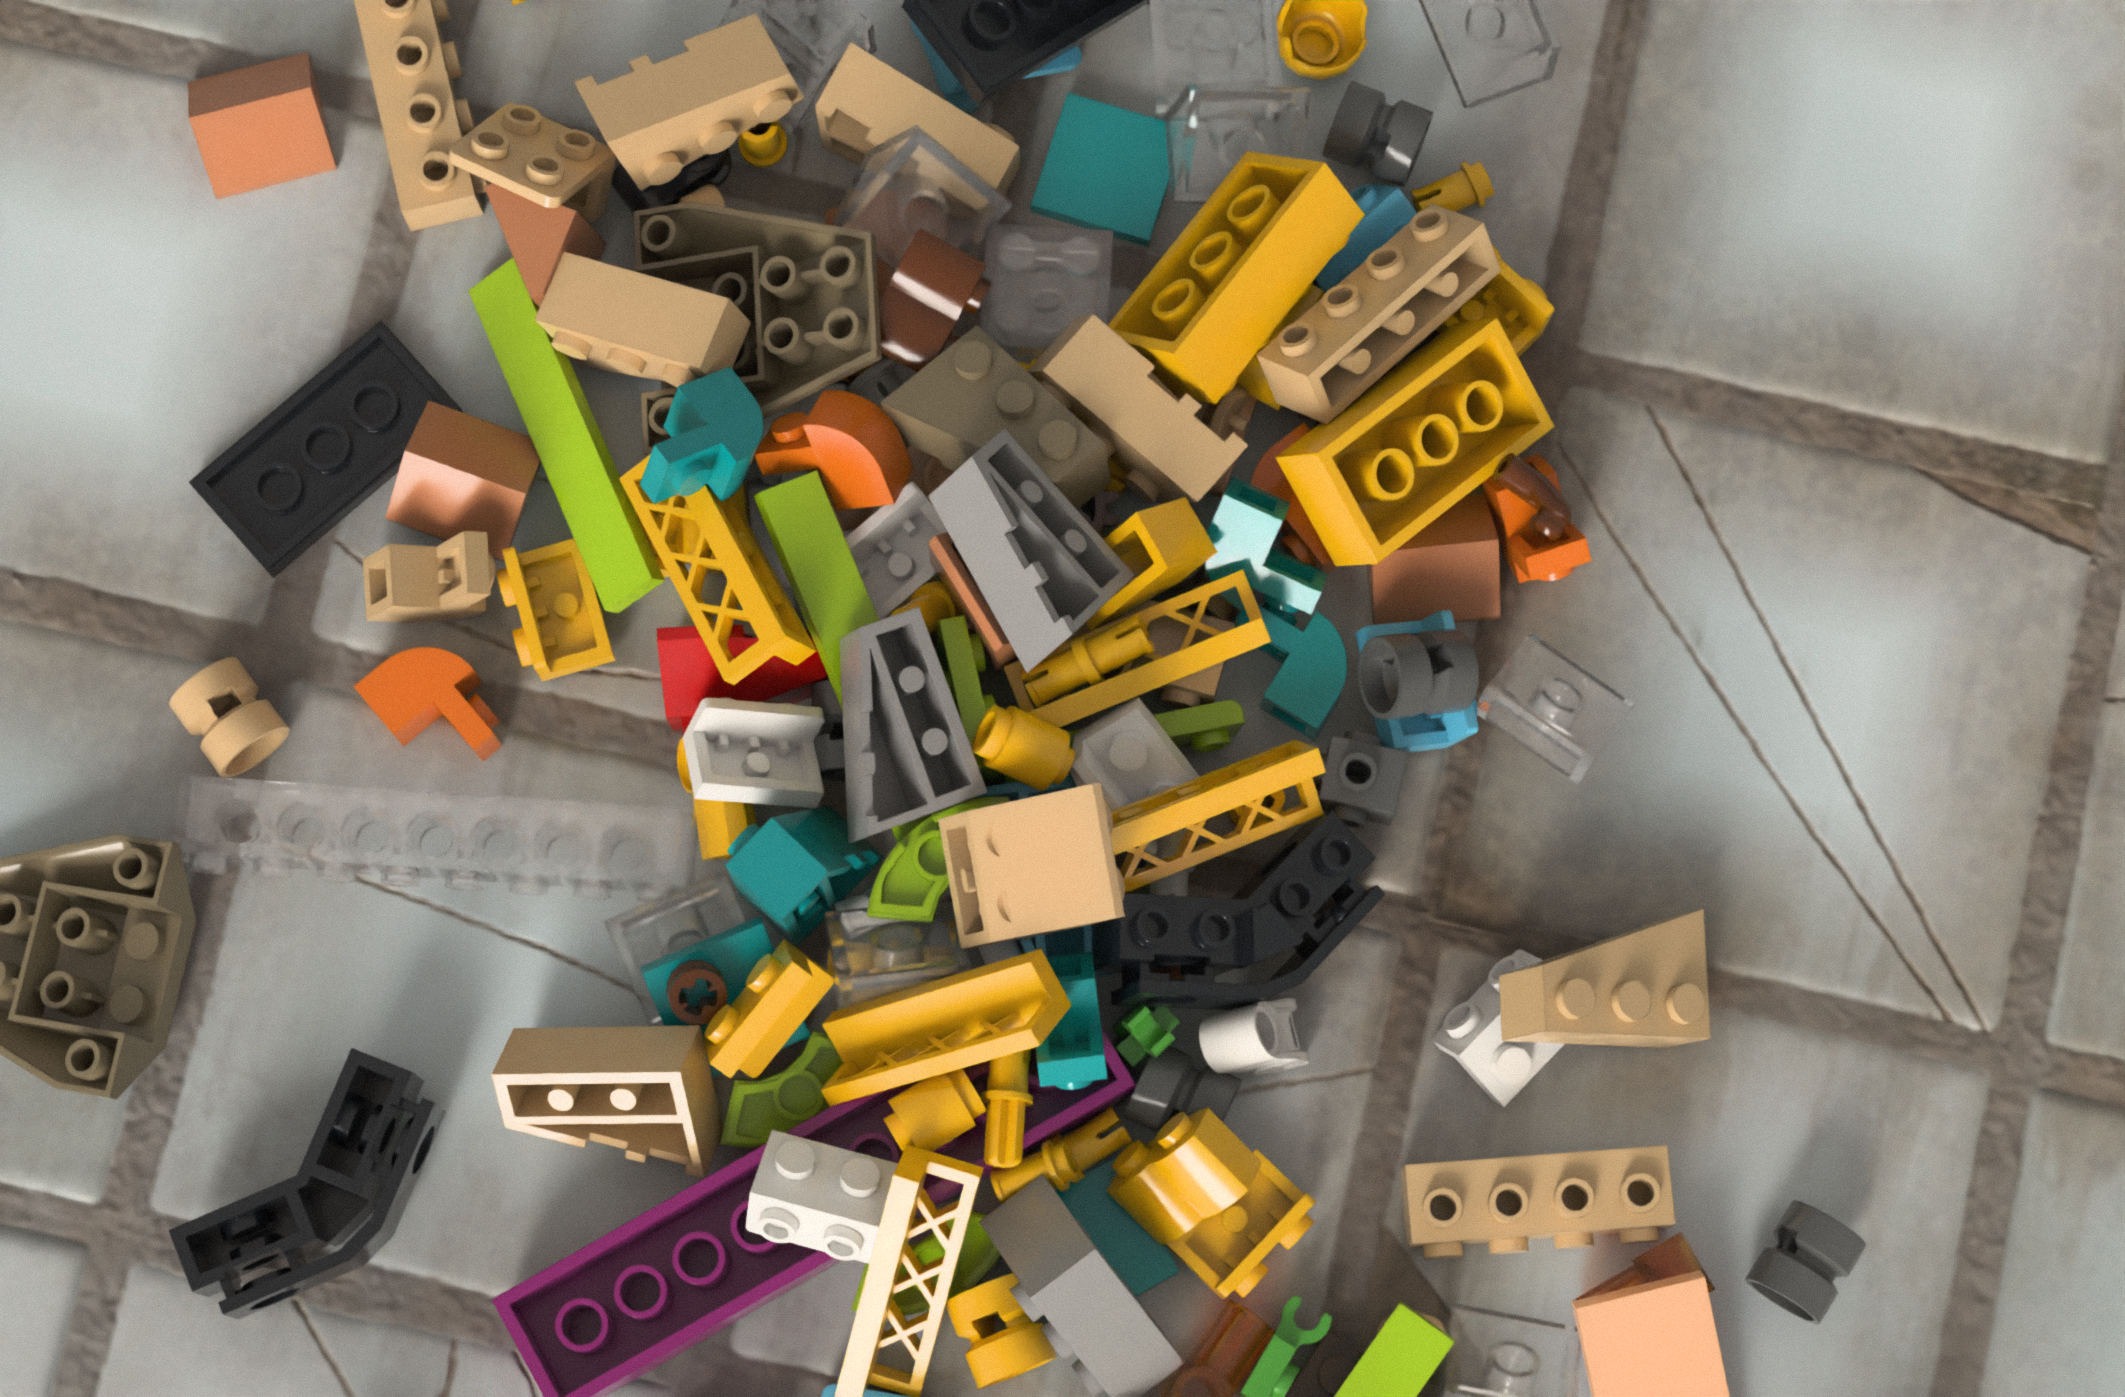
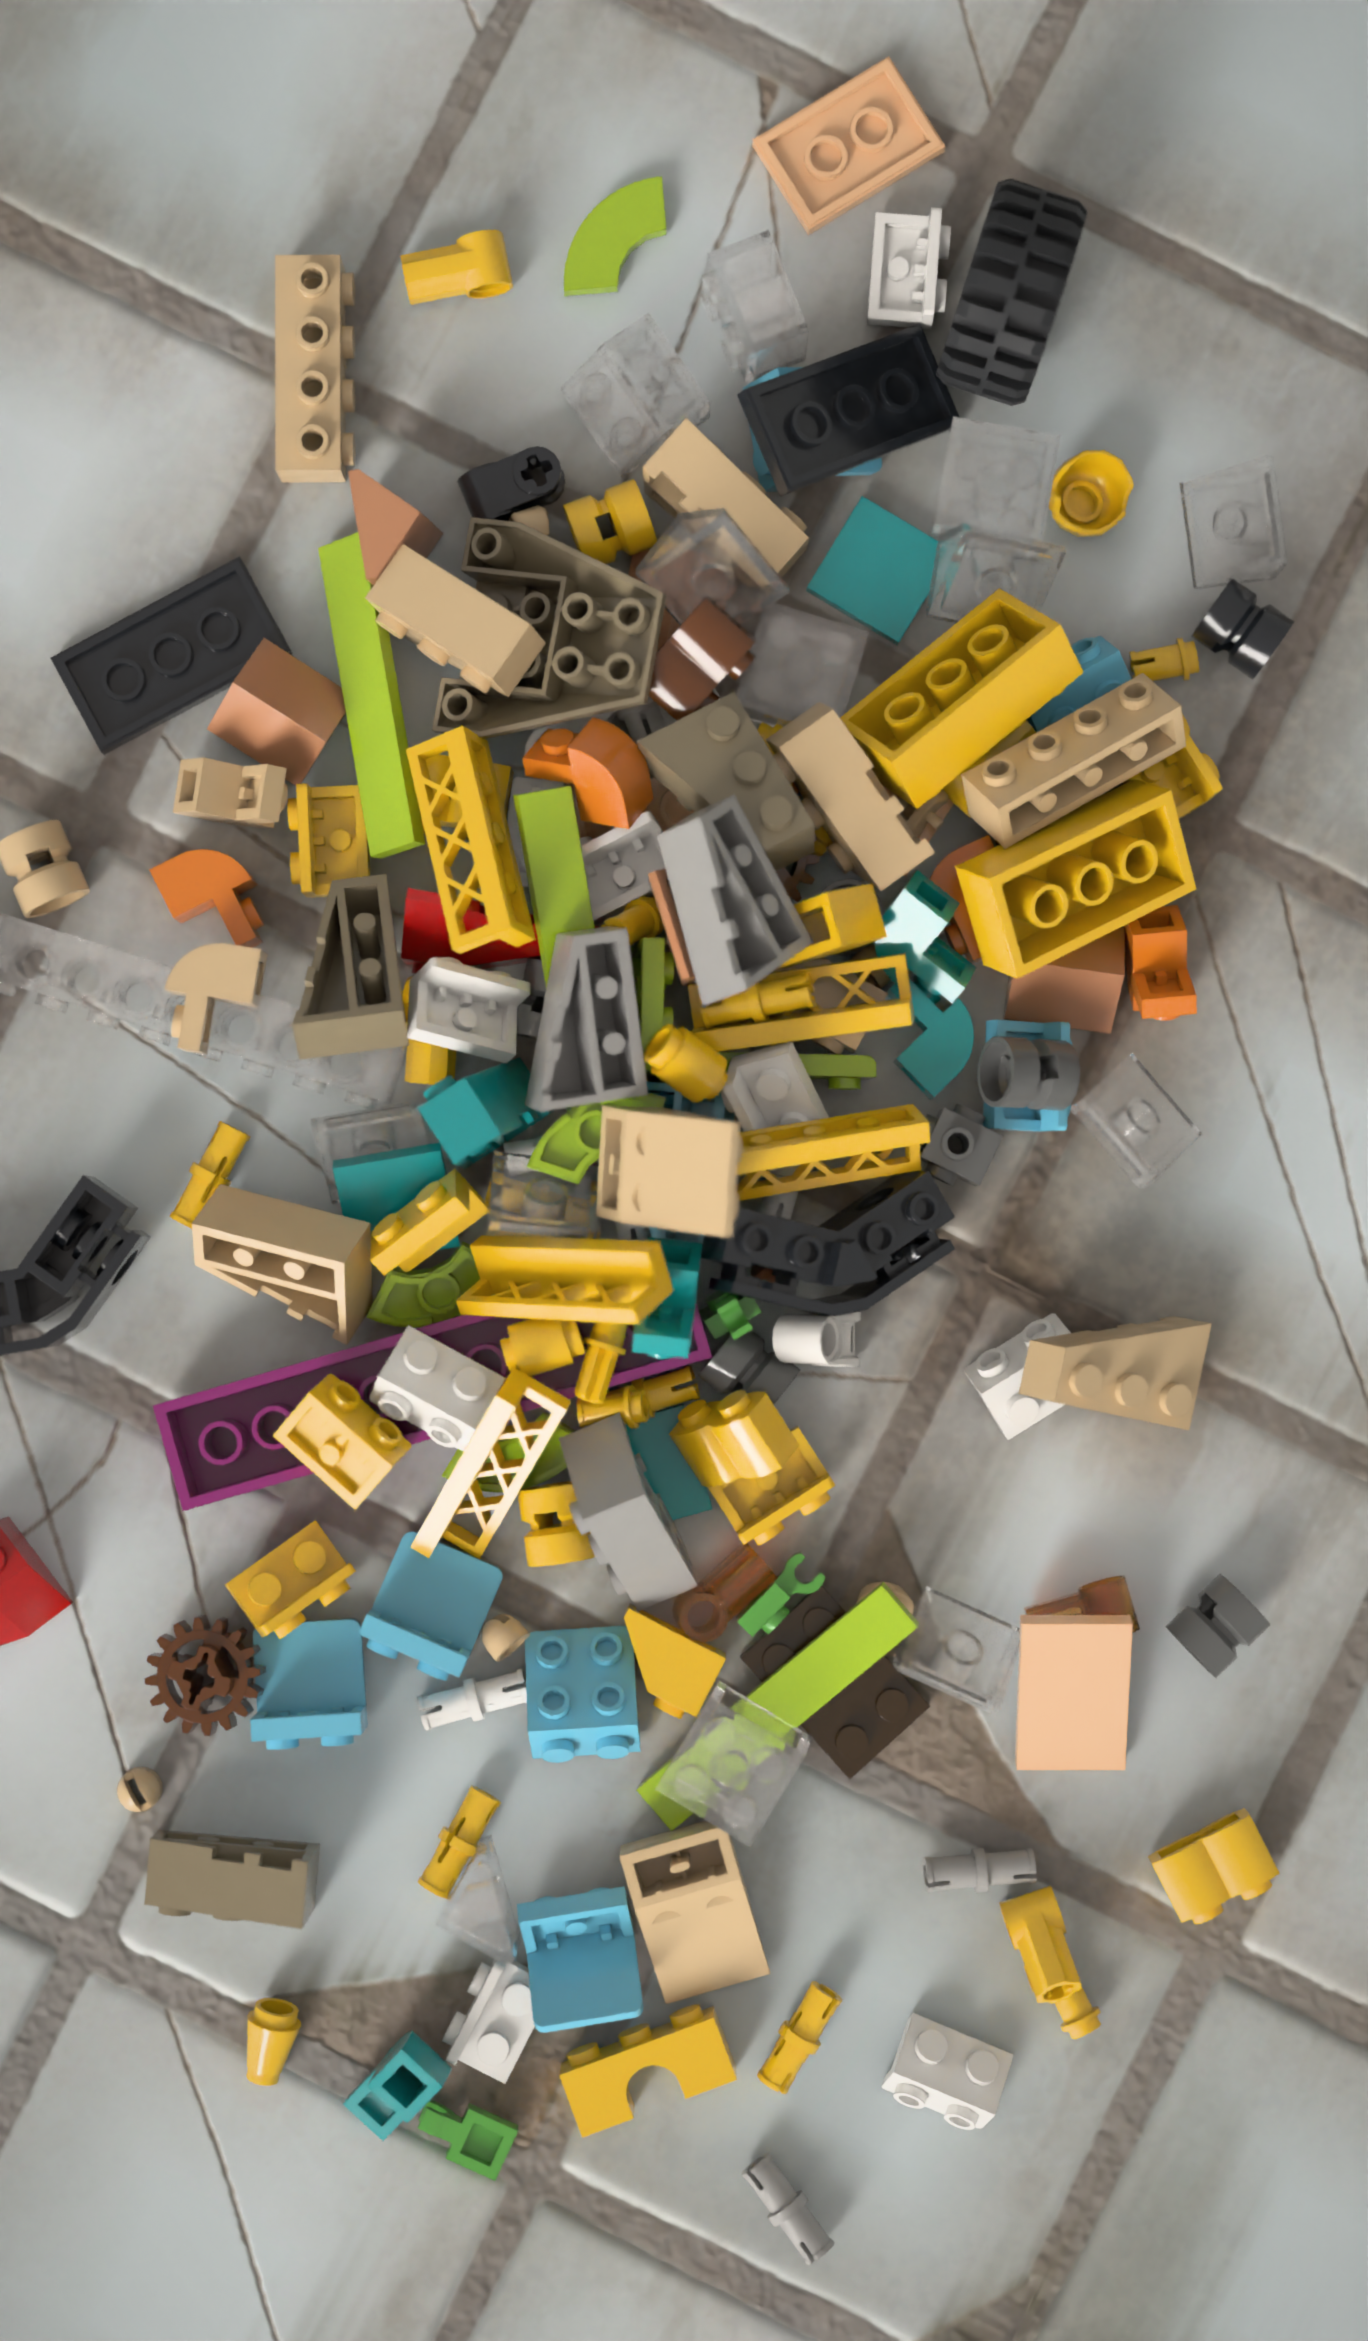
camera: 15 degrees right, 10 degrees up
(260, 125) = (174, 359): nougat slope -> none
(453, 783) = (211, 975): none -> tan brick
(501, 1015) = (210, 1172): none -> yellow pin
(539, 160) = (398, 454): tan bracket -> none
(617, 747) = (354, 979): none -> dark tan wedge
(685, 976) = (367, 1180): reddish brown bush -> none
(691, 102) = (540, 437): tan wedge -> none
(712, 439) = (493, 739): teal brick -> none
(725, 1282) = (342, 1439): none -> yellow bracket
(763, 144) = (593, 485): yellow pin -> none
(809, 172) = (627, 516): none -> yellow wheel
(1357, 124) = (1102, 580): dark grey wheel -> none
(1529, 134) = (1242, 628): none -> black wheel
(1537, 1198) = (1015, 1521): tan brick -> none
(1538, 491) = (1168, 945): reddish brown arm -> none

